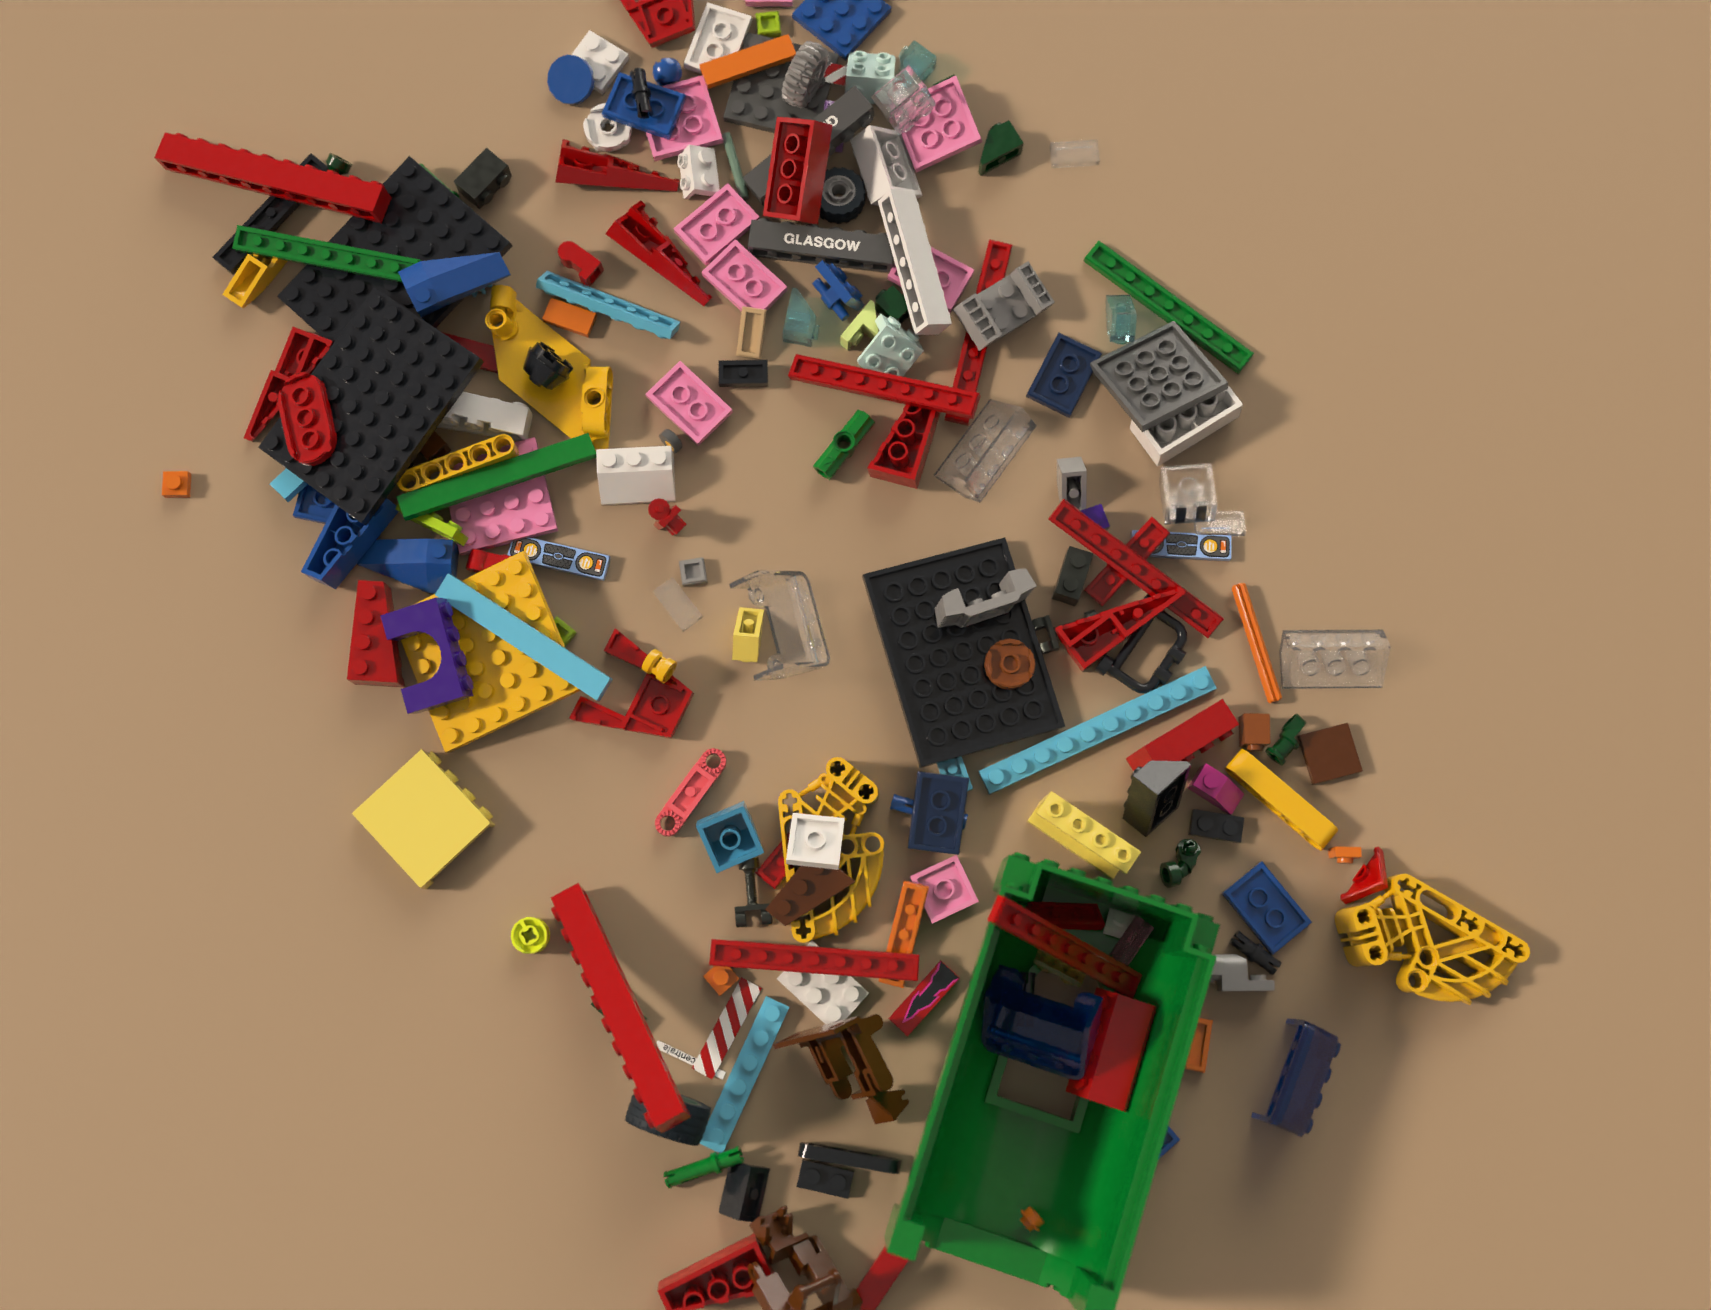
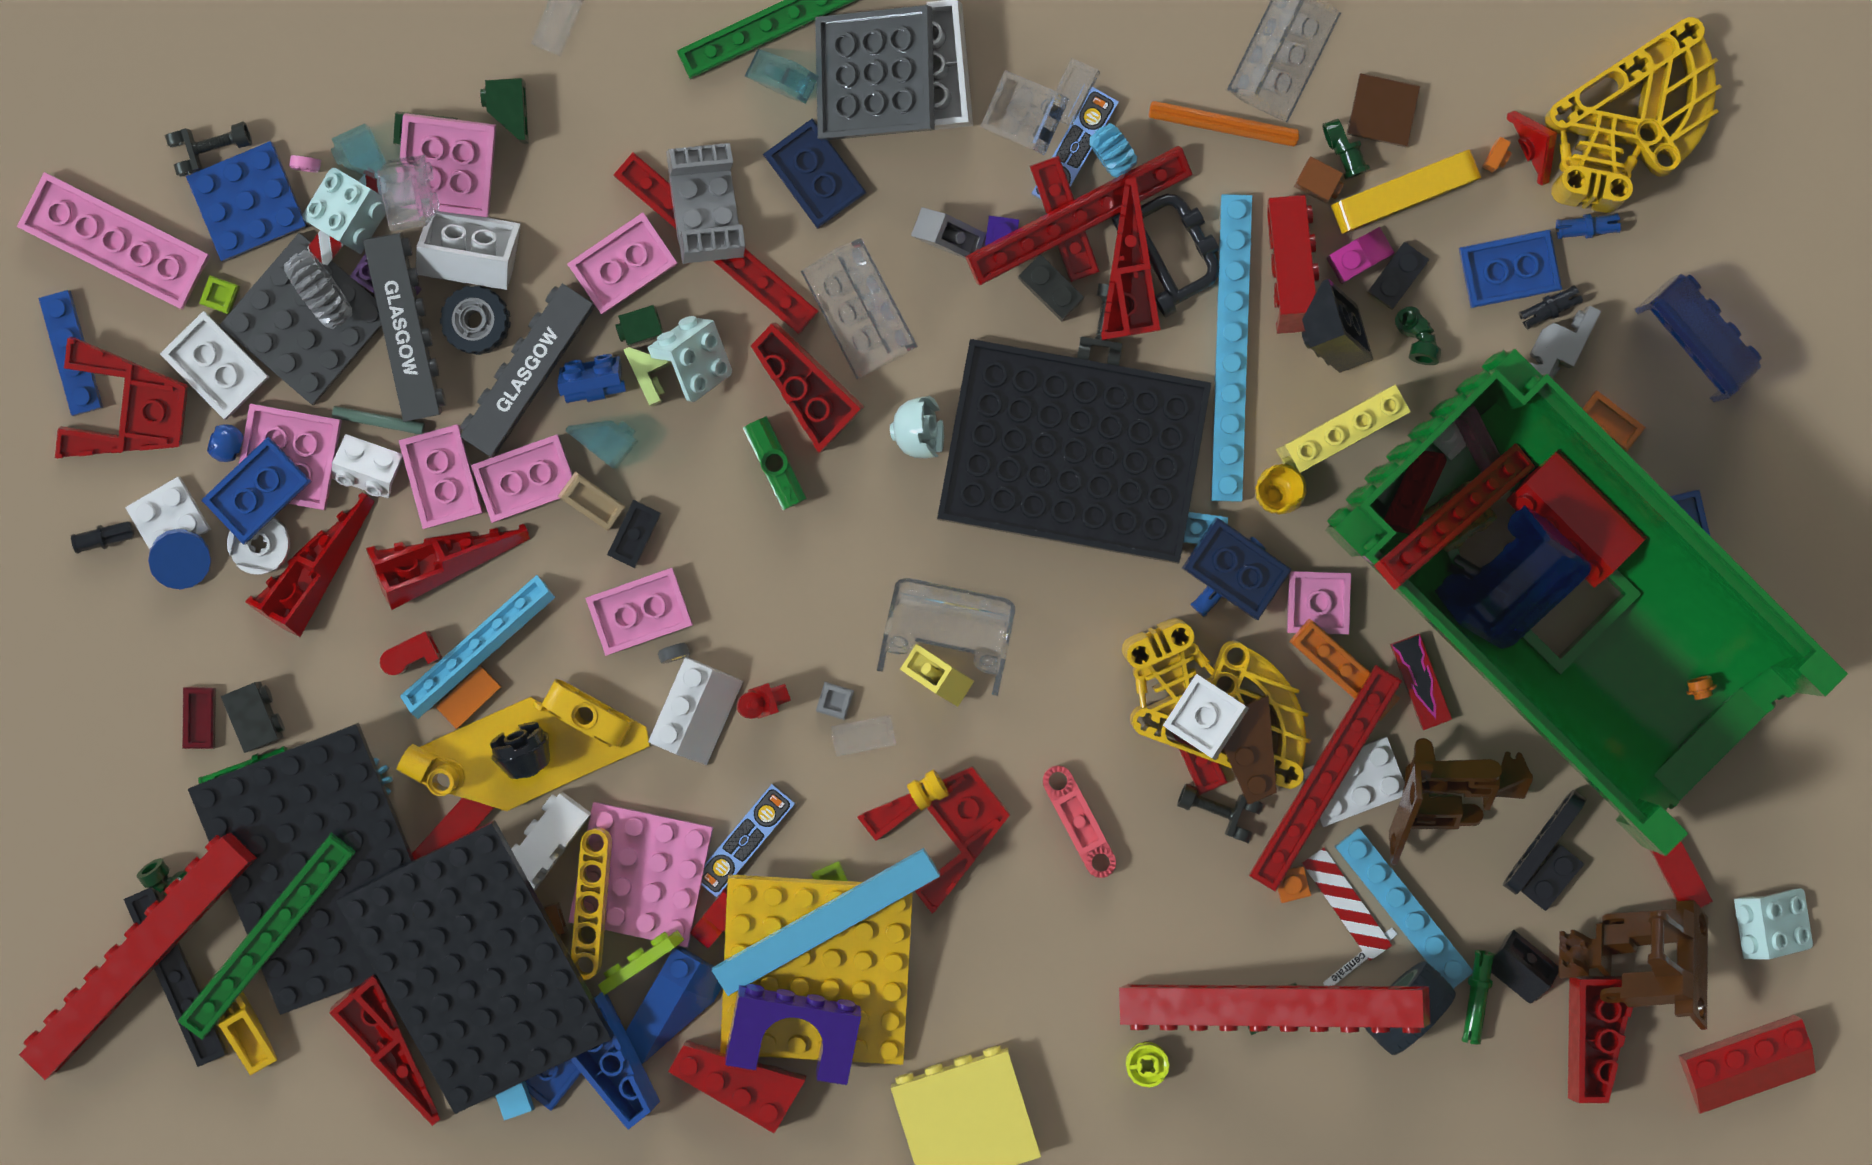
camera: 60 degrees left, 10 degrees up
(307, 419) = (455, 1045): red tile -> none
(447, 280) = (369, 821): blue wedge -> none
(465, 146) = (199, 717): none -> dark red tile
(496, 477) = (624, 865): green tile -> none
(561, 25) = (102, 537): none -> black axle
(641, 93) = (245, 488): black pin -> none
(730, 836) = (1149, 803): dark azure slope -> none
(747, 61) = (260, 344): orange tile -> none
(797, 170) = (432, 357): red slope -> none
(884, 386) = (734, 386): red tile -> none
(887, 35) = (305, 164): none -> bright pink tile
(914, 262) = (605, 278): white brick -> none
(921, 531) = (917, 428): none -> light aqua cylinder
(1009, 664) = (1115, 408): dark orange tile -> none
(1014, 589) = (1037, 362): light grey plate -> none
(1014, 815) = (1280, 489): none -> yellow hair
(1195, 570) = (1113, 150): none -> medium azure gear
(1330, 950) = (1588, 226): none -> blue pin

